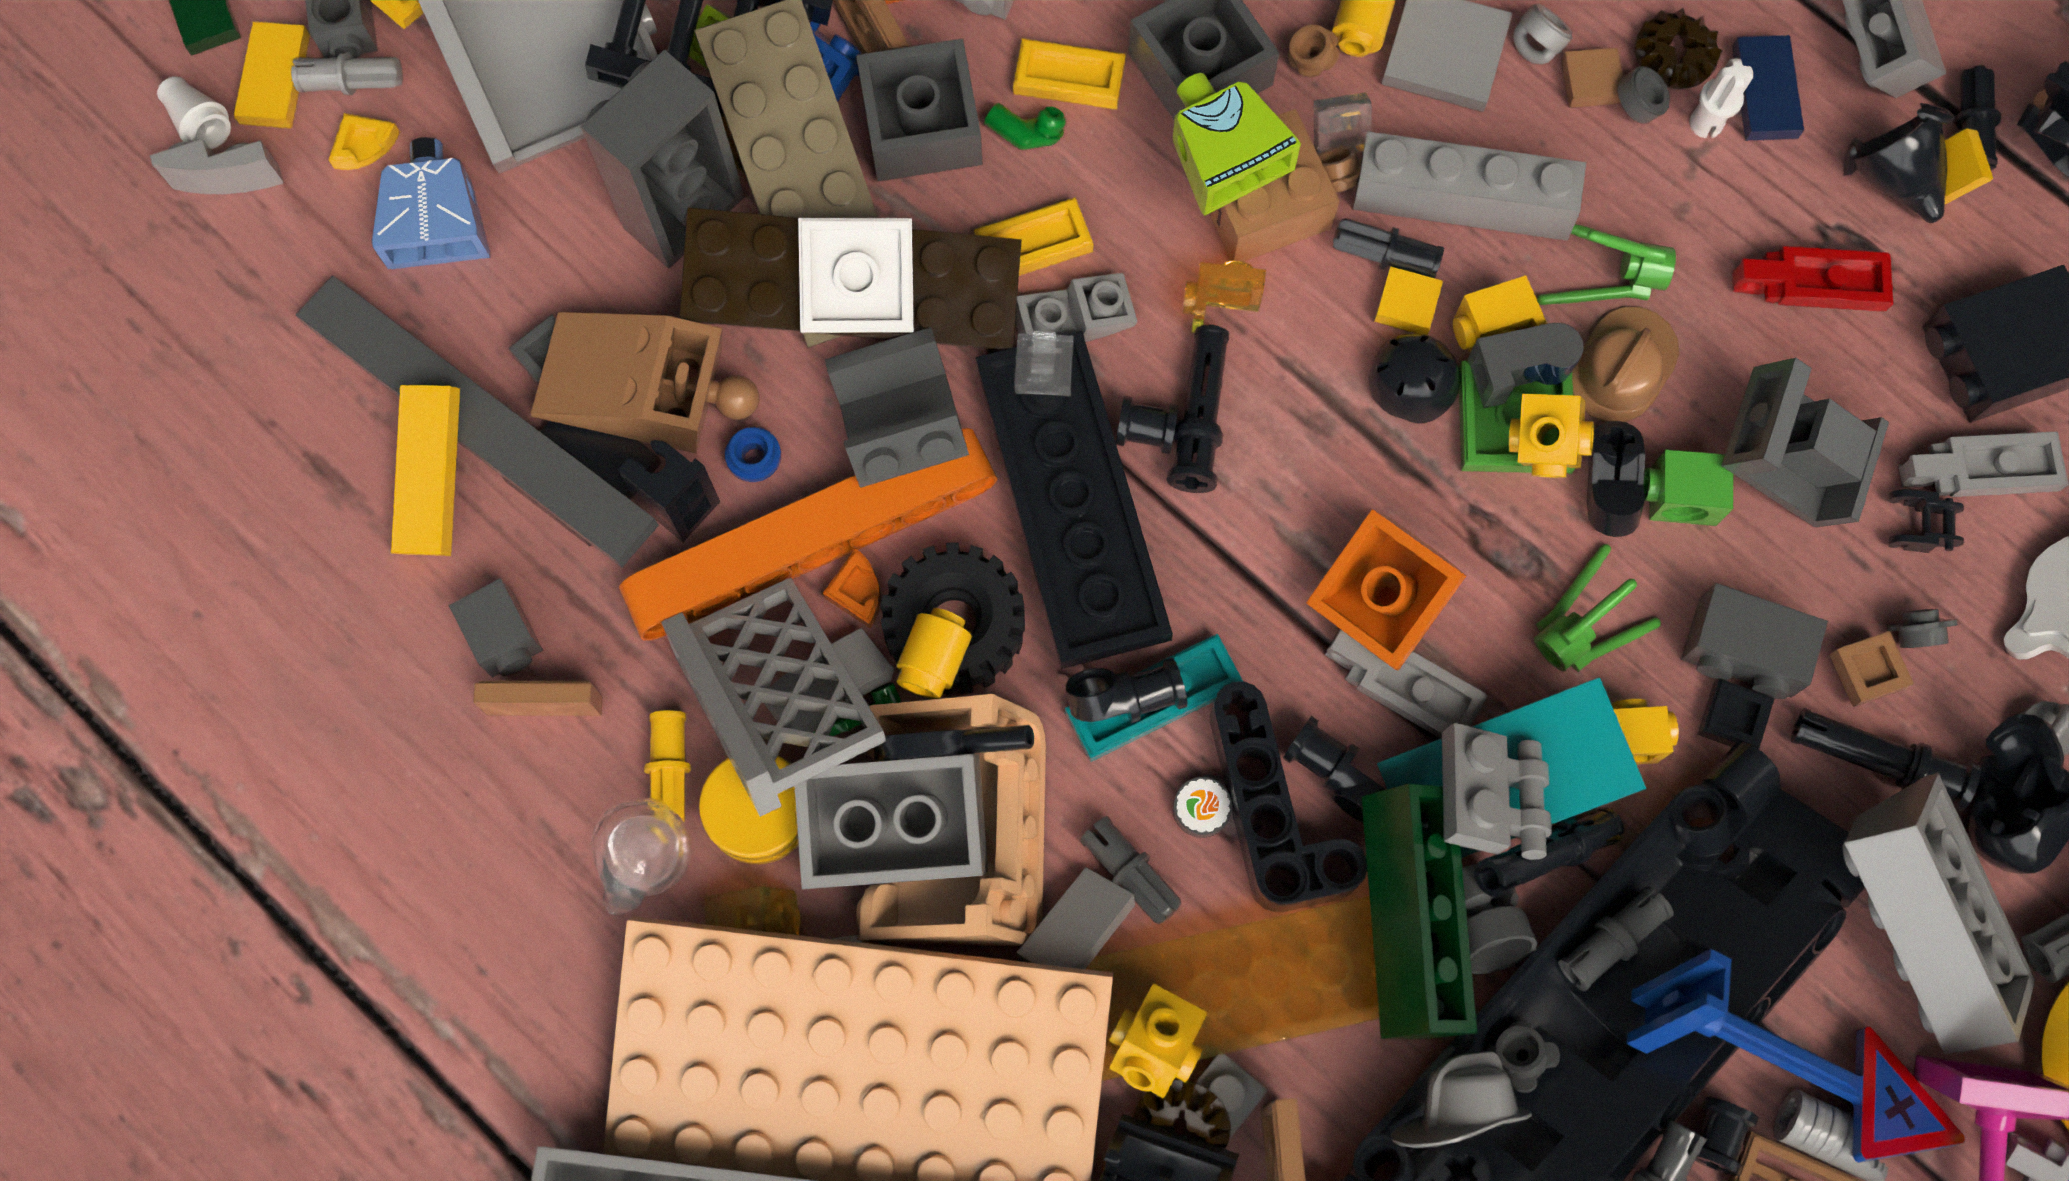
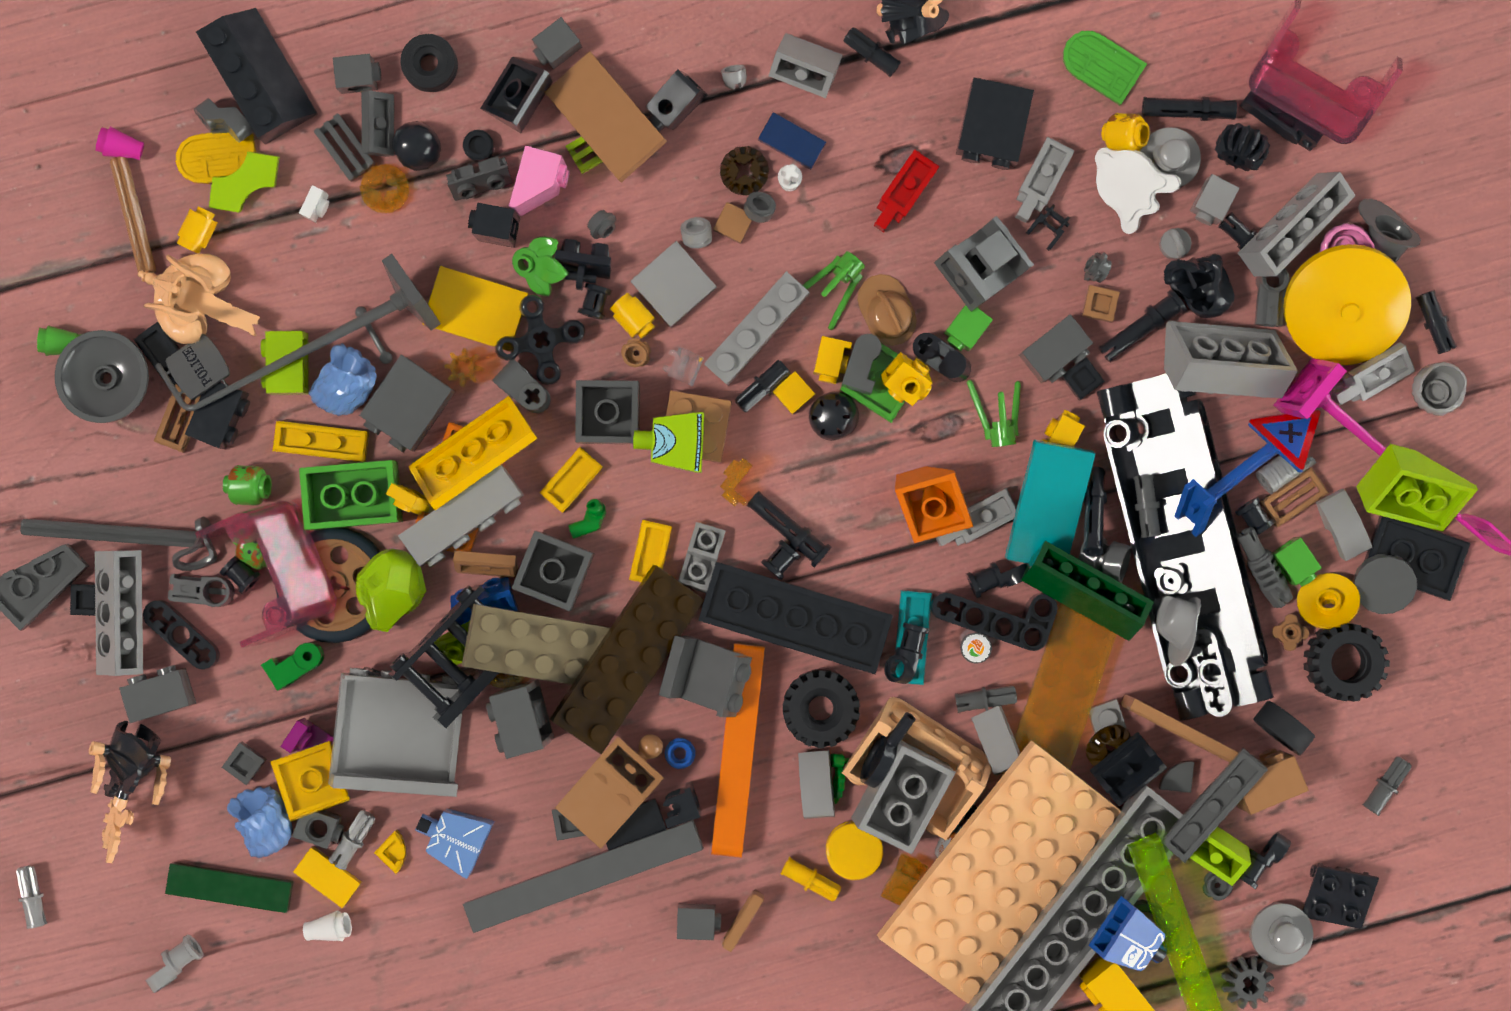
camera: 60 degrees left, 15 degrees up
(197, 169) = (364, 937): light grey slope -> none
(425, 470) = (597, 913): yellow tile -> none
(639, 852) = (844, 915): clear piece -> none
(734, 720) = (815, 840): light grey fence -> none
(855, 275) = (632, 659): white tile -> none
(856, 589) = (776, 743): orange tile -> none
(933, 653) = (840, 733): yellow brick -> none
(1044, 364) = (724, 592): clear tile -> none
(1157, 1041) = (1072, 739): yellow brick -> none
(1341, 167) = (706, 383): medium nougat plate -> none
(1477, 792) = (1053, 532): light grey plate -> none
(1908, 162) = (874, 107): black hat -> none
(1965, 164) = (890, 83): yellow tile -> none

